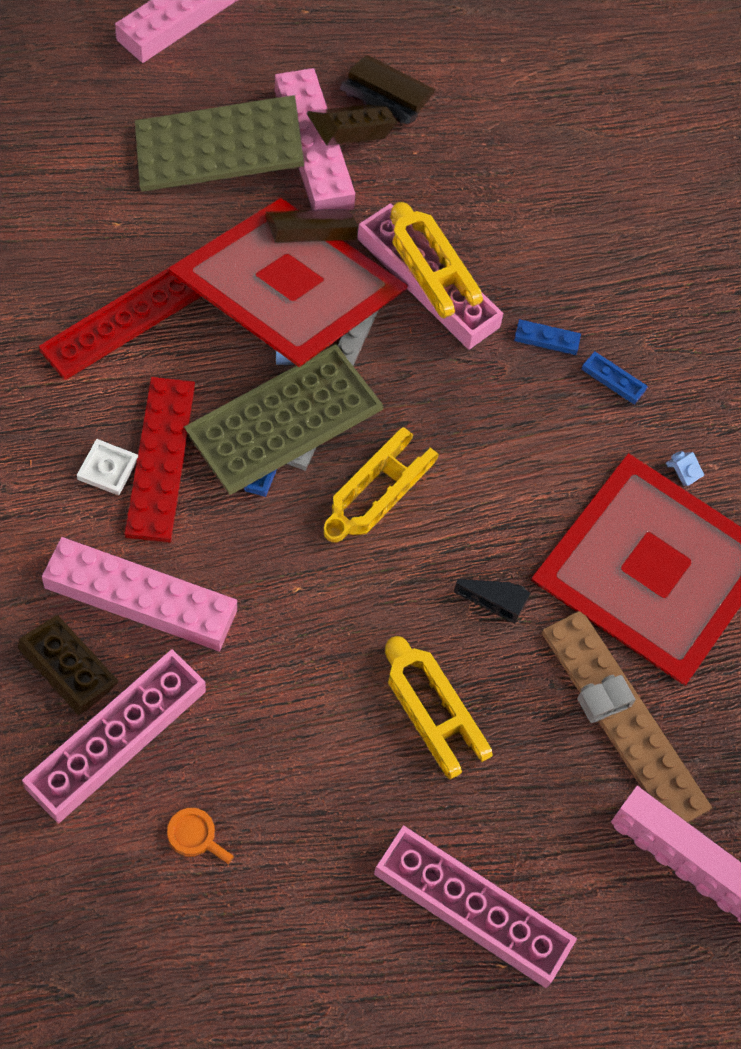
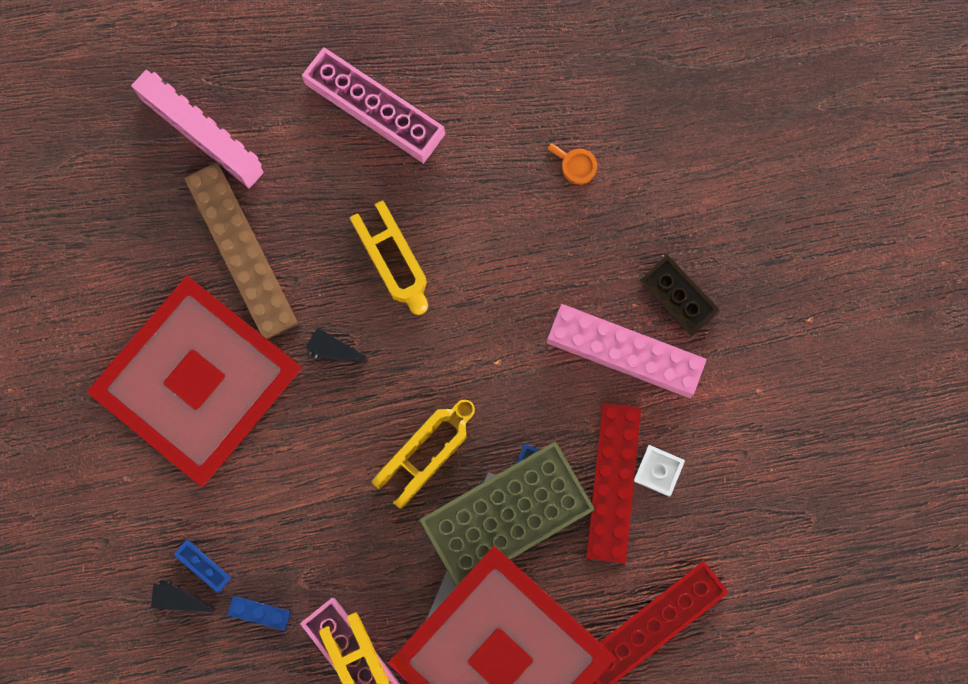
camera: 165 degrees left, 15 degrees up
(114, 736) = (638, 232): bright pink brick -> none
(605, 698) = (254, 255): light grey brick -> none
(637, 347) = (176, 598): none -> black slope
(686, 467) = (153, 473): light blue bracket -> none

